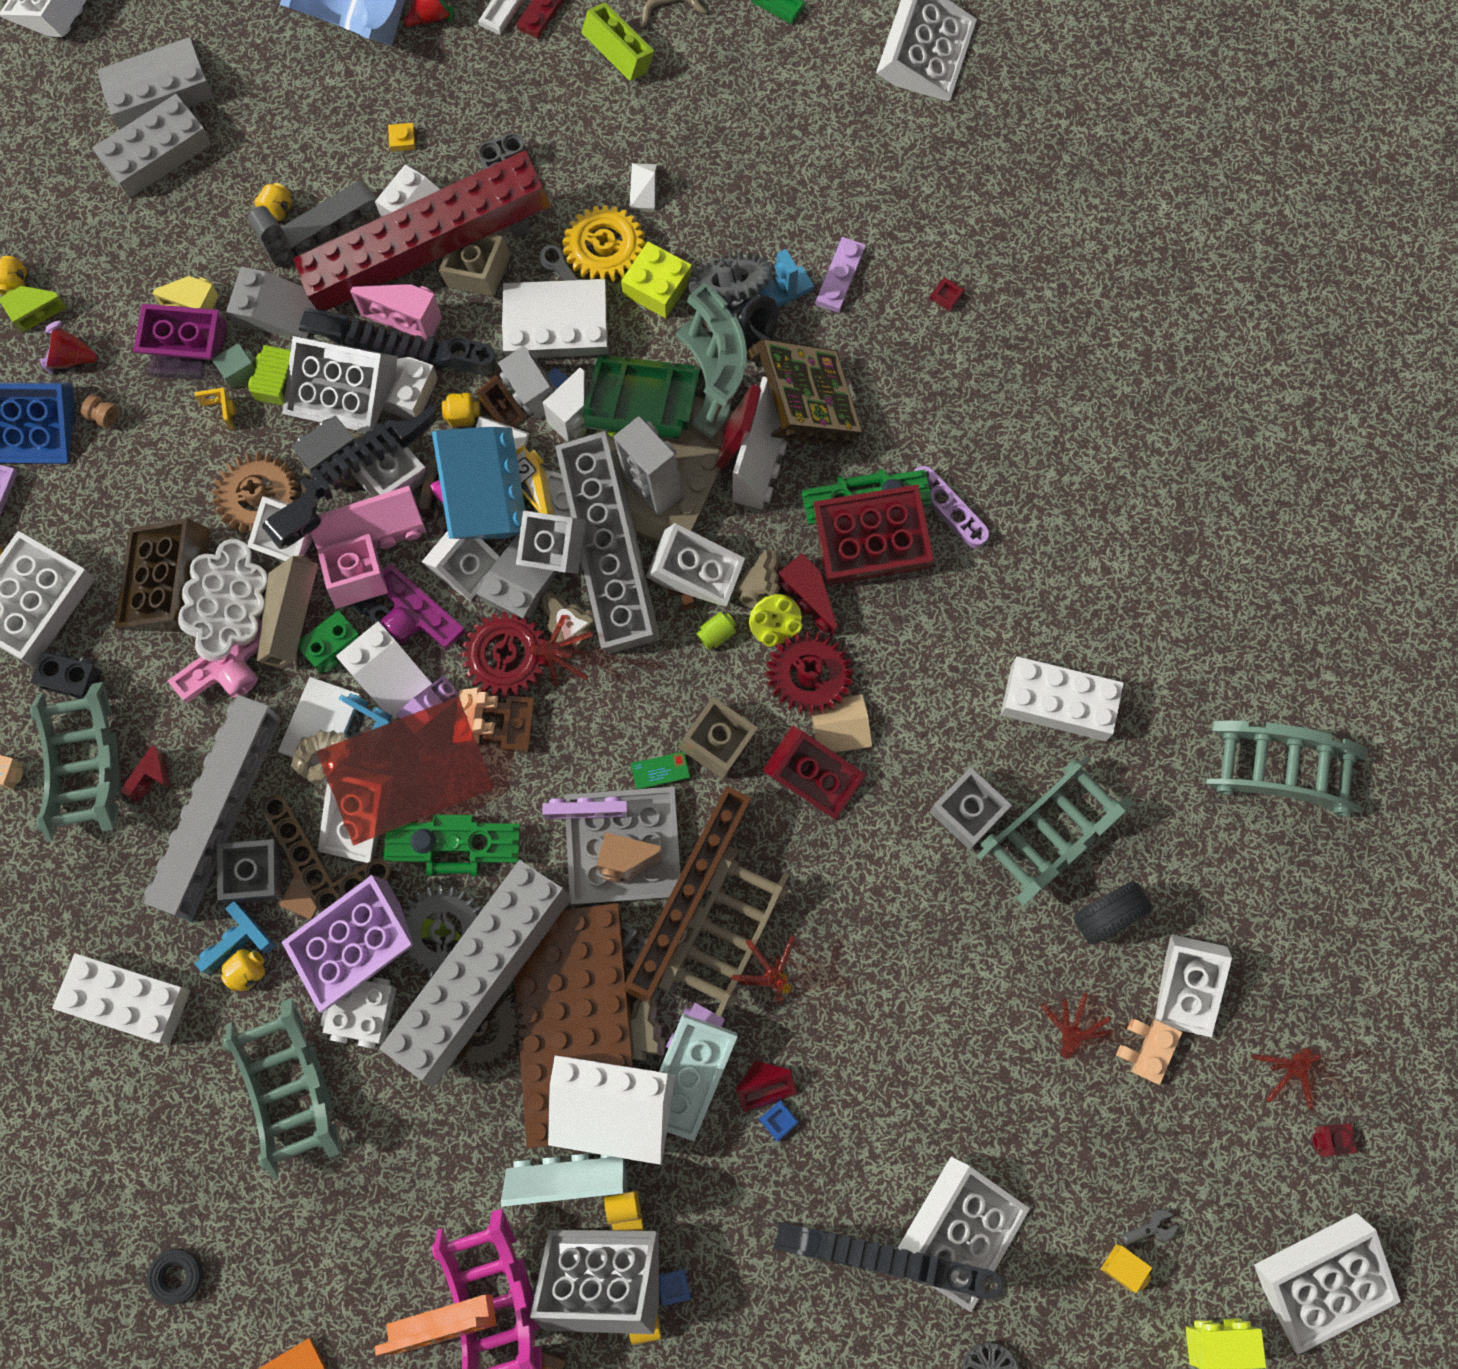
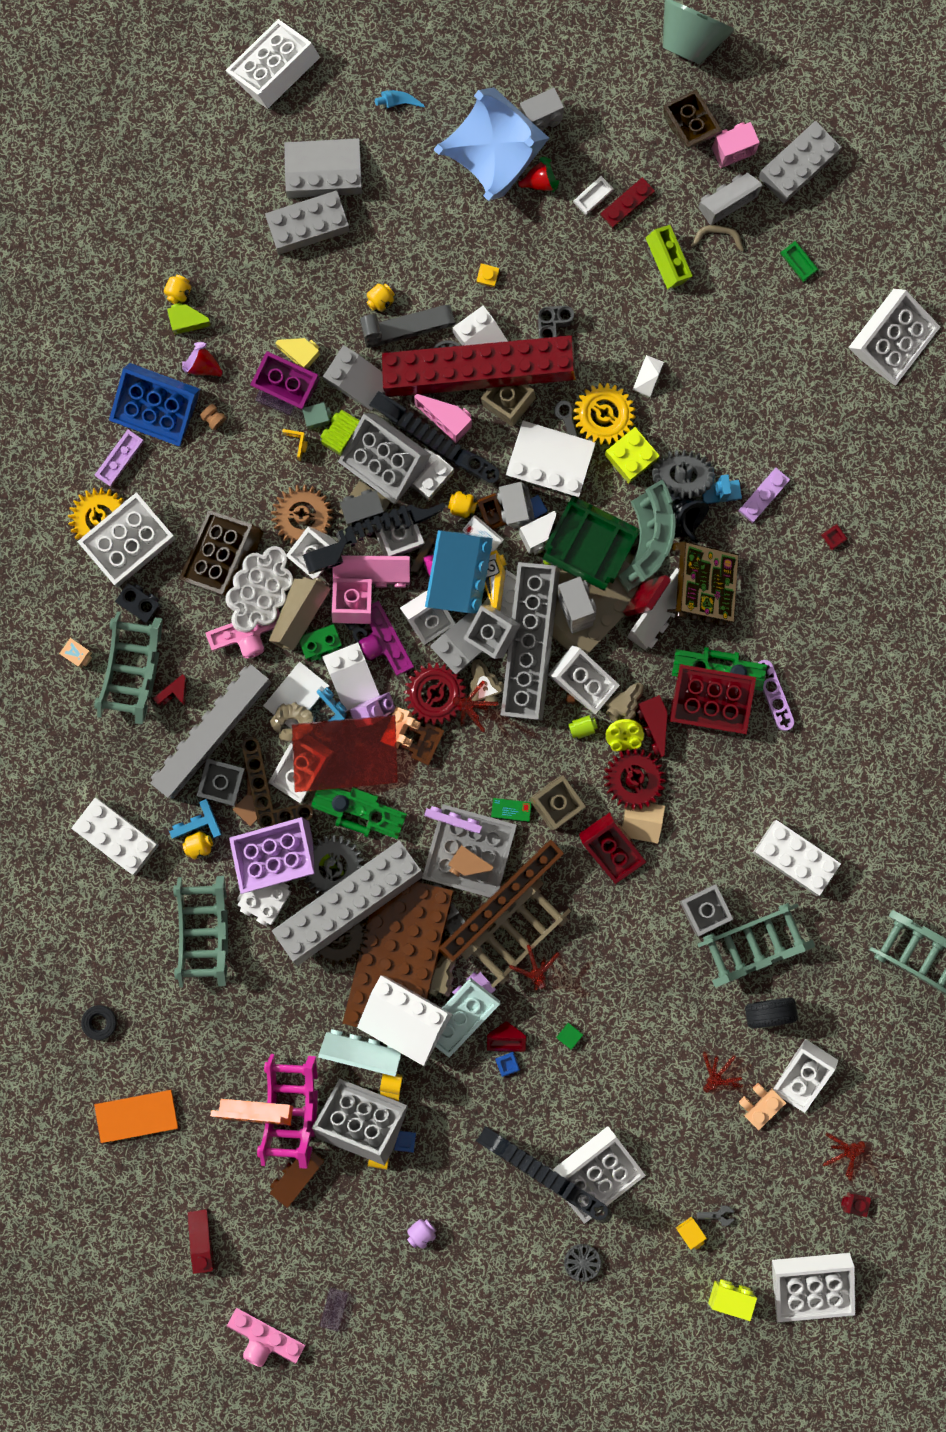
camera: 15 degrees right, 10 degrees up
(850, 1049) = (569, 1036): none -> green tile

